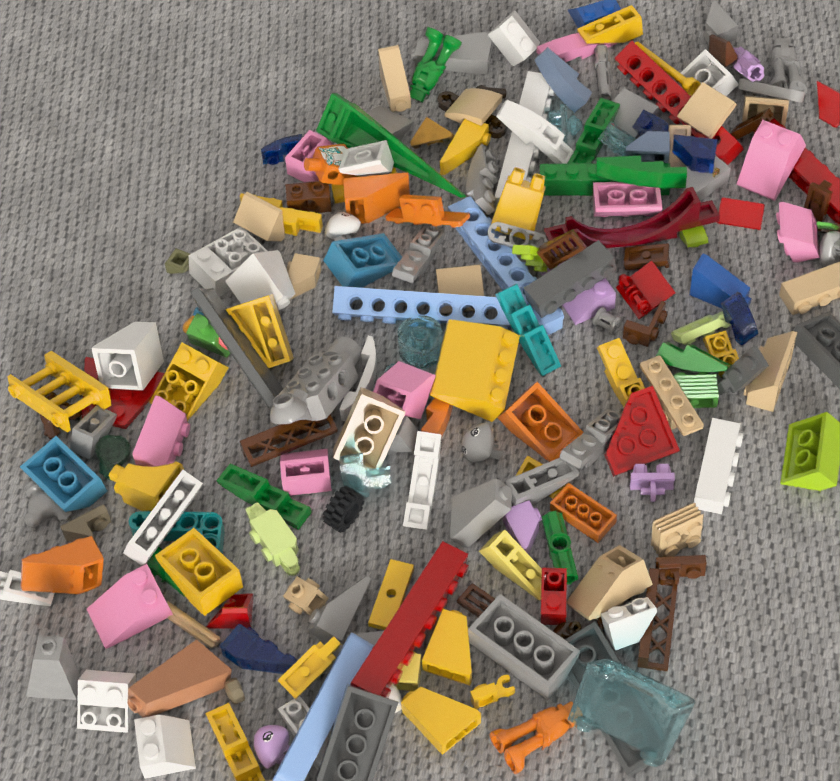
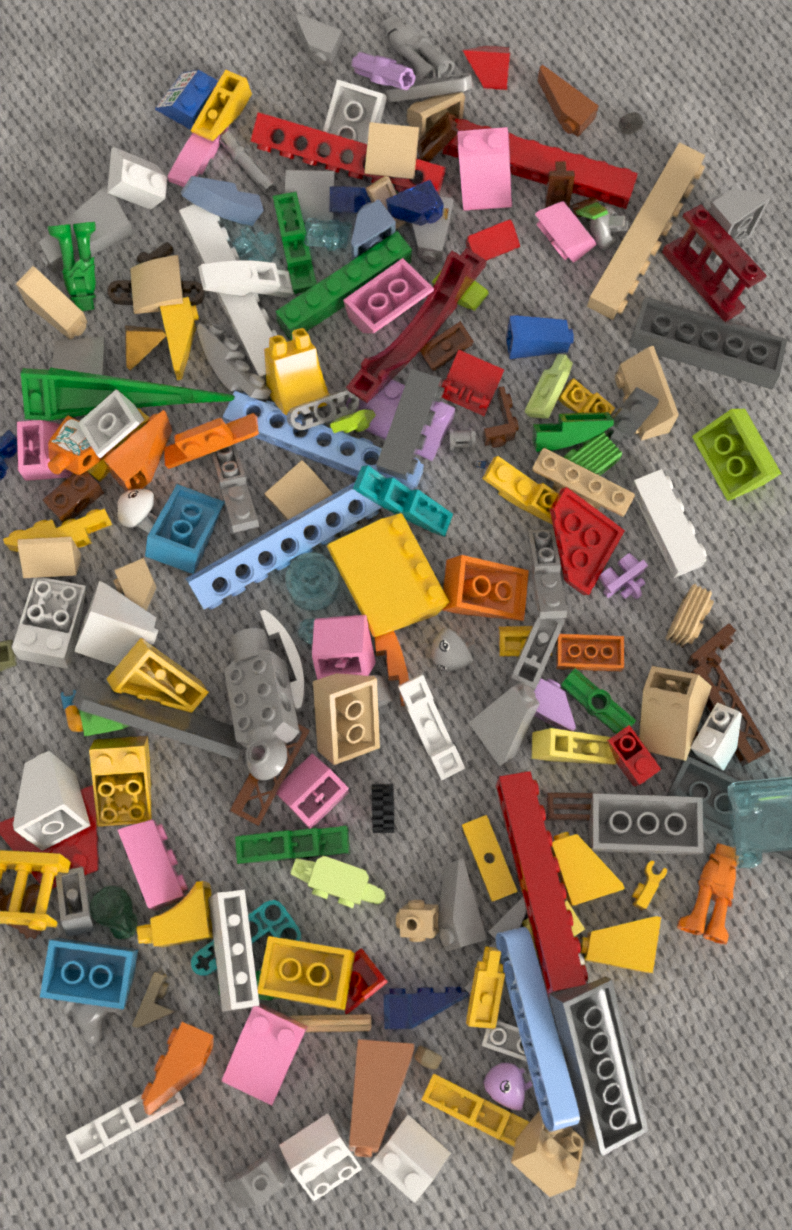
camera: 45 degrees left, 20 degrees up
(356, 476) = (373, 764): clear light blue brick -> none
(548, 257) = (377, 412): reddish brown slope -> none
(567, 629) = (661, 779): dark brown arm -> none
(633, 171) = (379, 265): green slope -> none
(689, 84) = (349, 129): yellow piece -> none
(721, 50) = (347, 69): reddish brown slope -> none
(740, 317) = (579, 357): clear blue slope -> none

